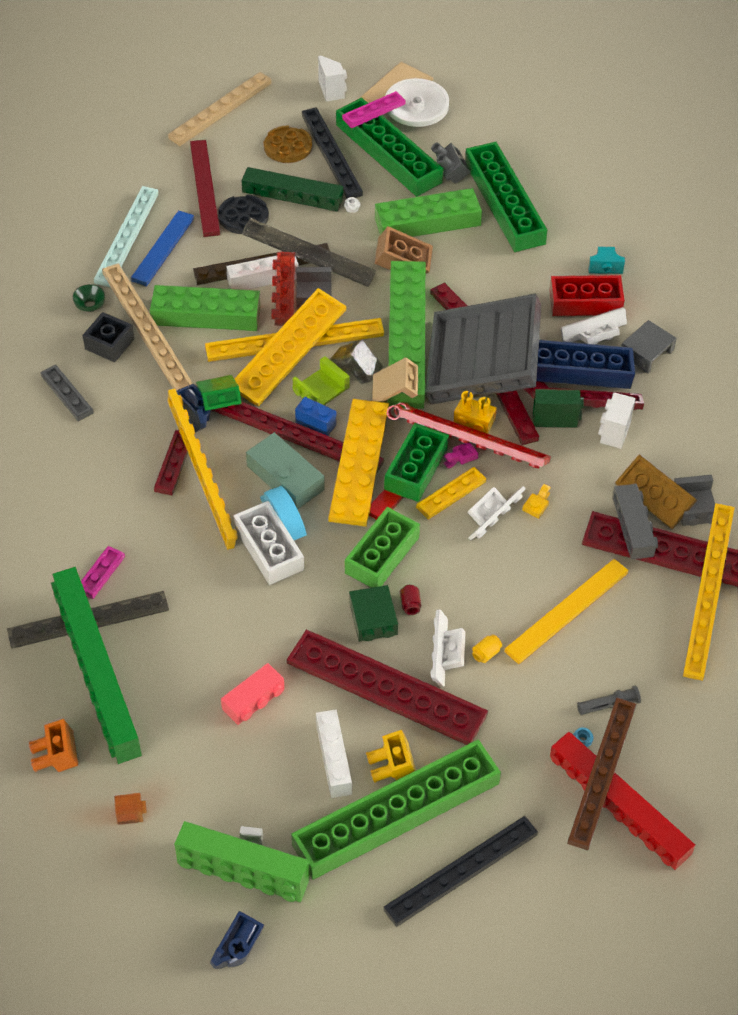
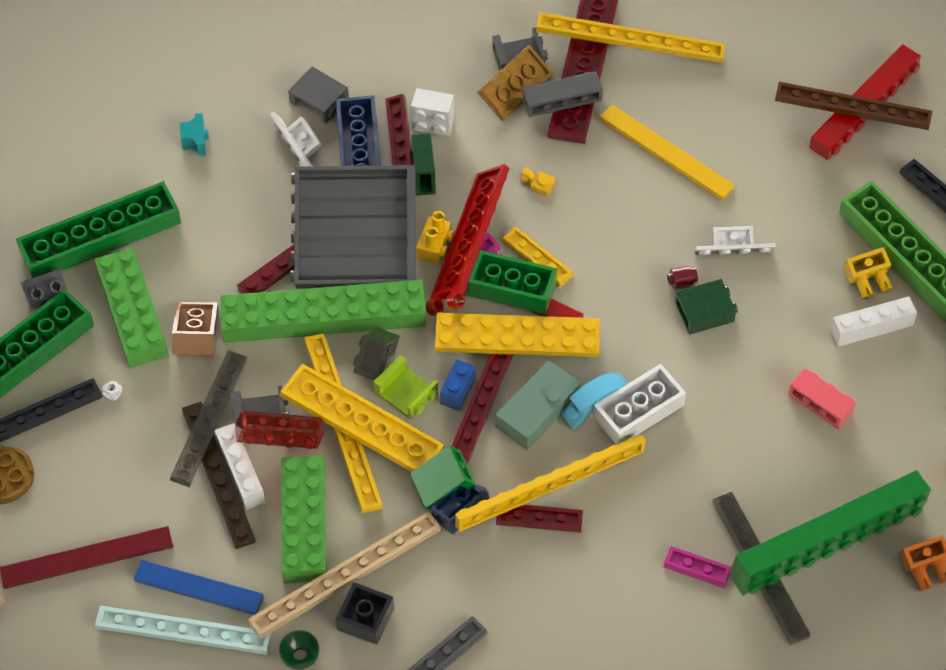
camera: 95 degrees left, 5 degrees up
(237, 211) = (132, 506): black tile -> none
(292, 189) = (91, 455): dark green brick -> none
(382, 548) = (628, 303): bright green brick -> none
(388, 687) = (786, 290): dark red plate -> none
(396, 379) = (413, 308): tan panel -> none
(486, 648) = (727, 210): yellow brick -> none
(489, 507) = (559, 216): white bracket -> none
(518, 417) = (437, 201): dark red plate -> none
(585, 295) = (253, 147): red brick -> none
(585, 733) = (805, 132): medium azure plate -> none
(597, 704) = (760, 107): dark grey pin -> none

